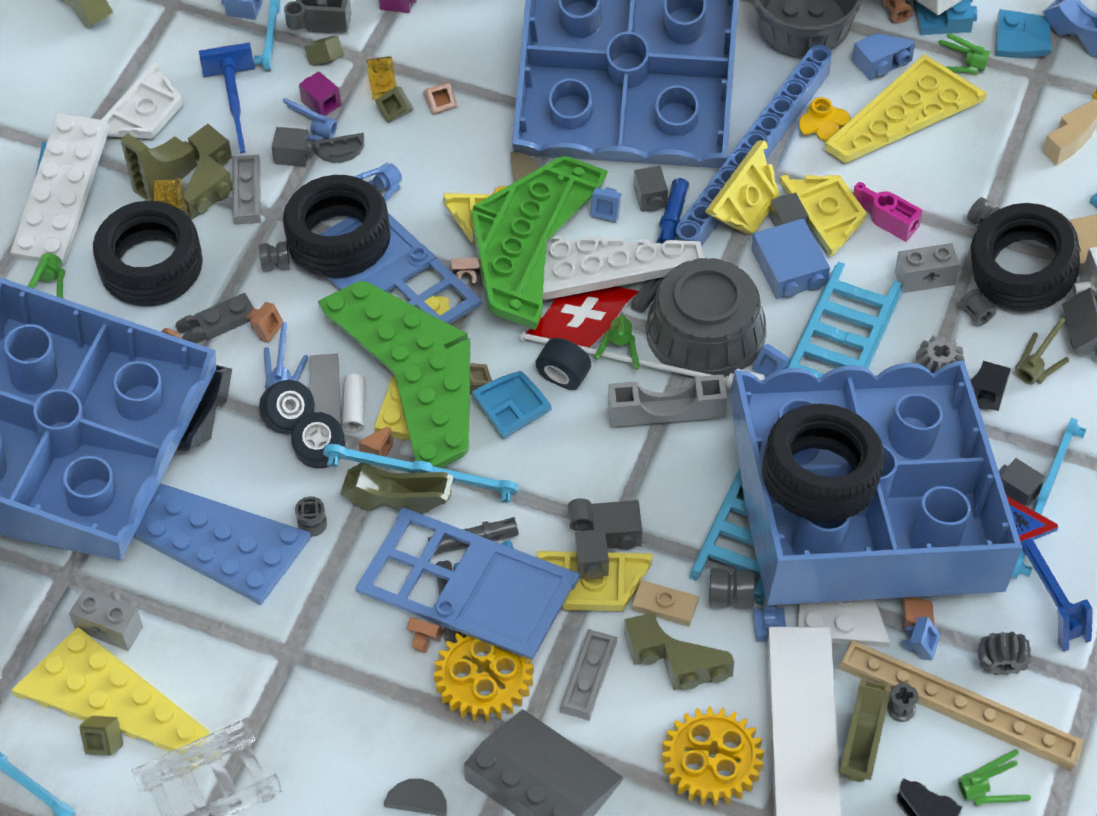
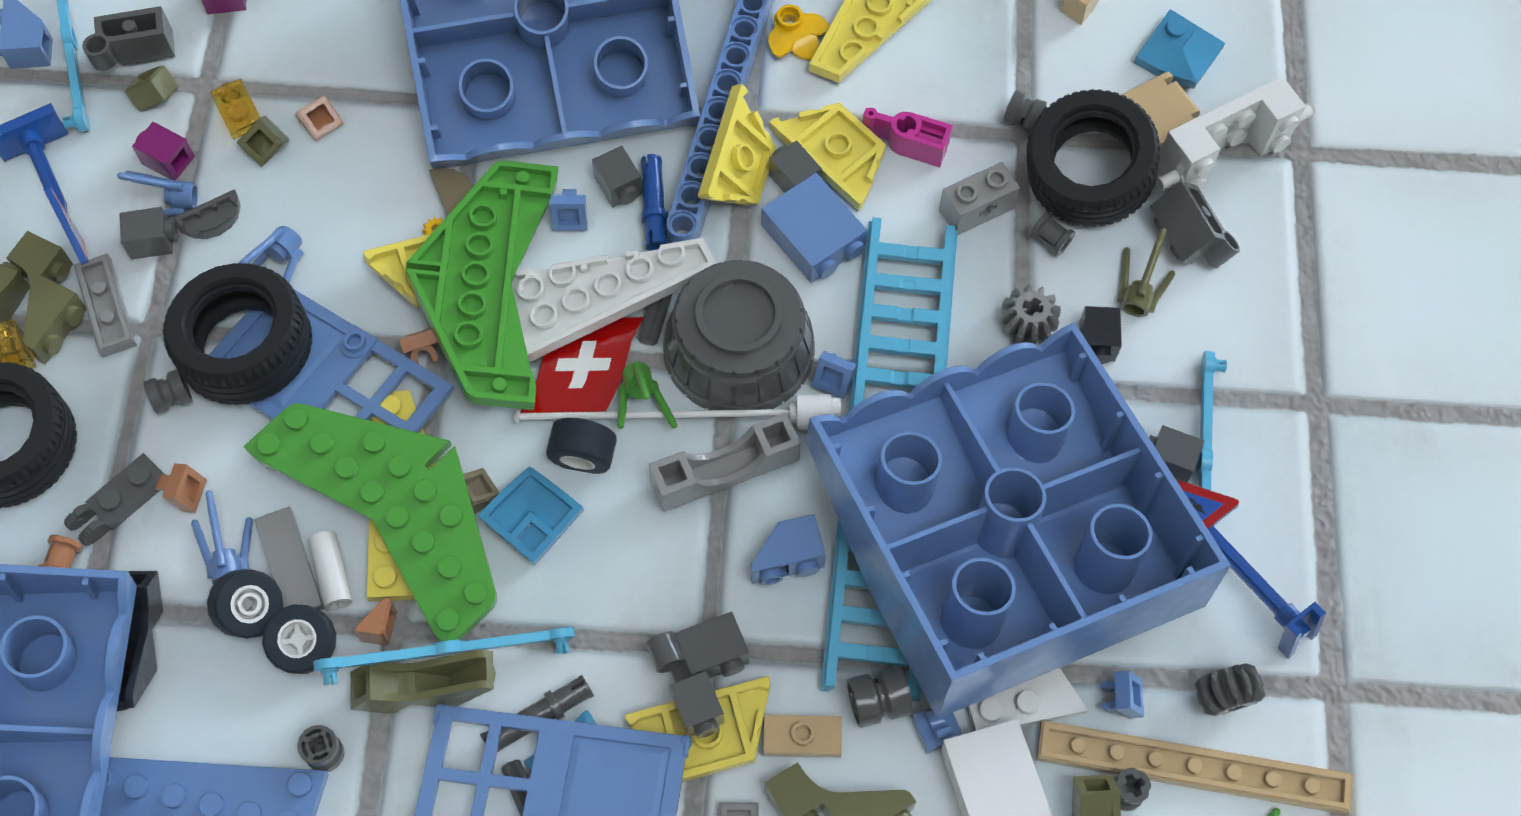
camera: 20 degrees left, 10 degrees up
(695, 475) = (790, 550): none -> medium blue slope
(826, 429) = (976, 479): black tyre -> none
(916, 607) = (1106, 662): nougat slope -> none

